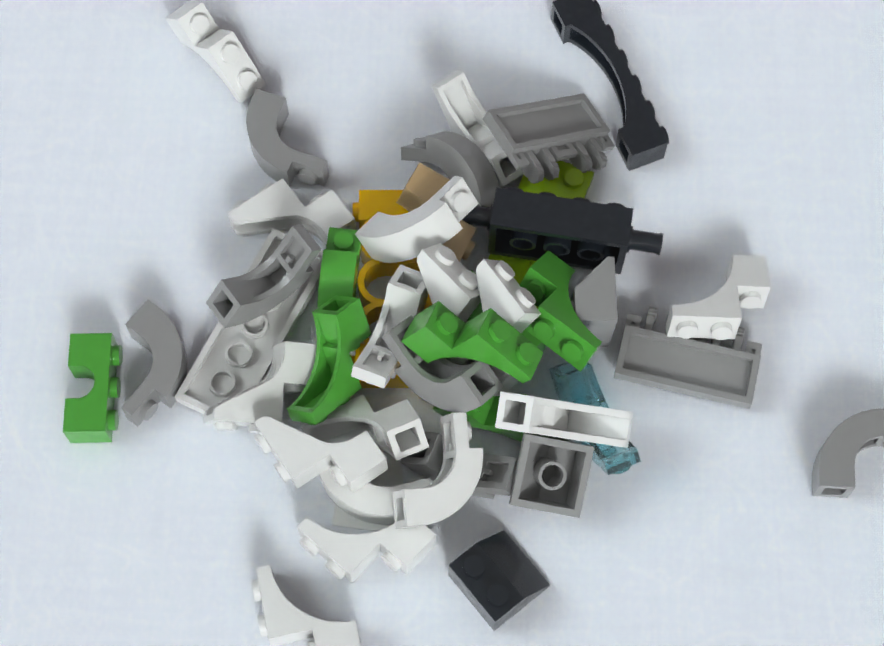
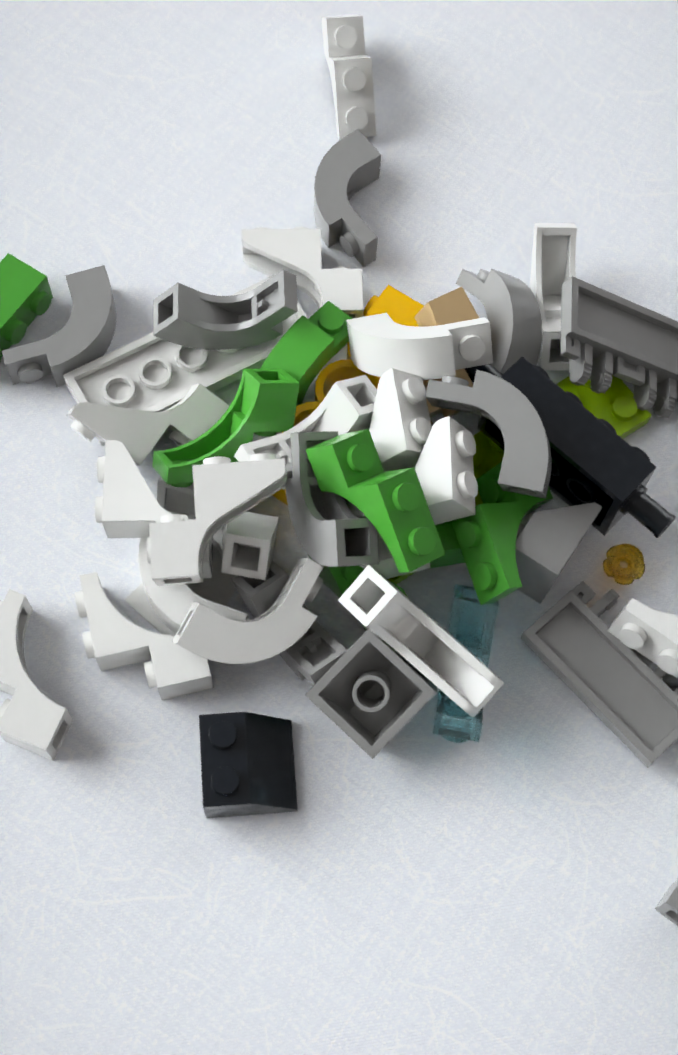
camera: 30 degrees right, 0 degrees up
(366, 408) = (220, 495): none -> white arch
(528, 234) = (526, 444): none -> light grey arch
(648, 277) = (628, 554): none -> clear yellow plate

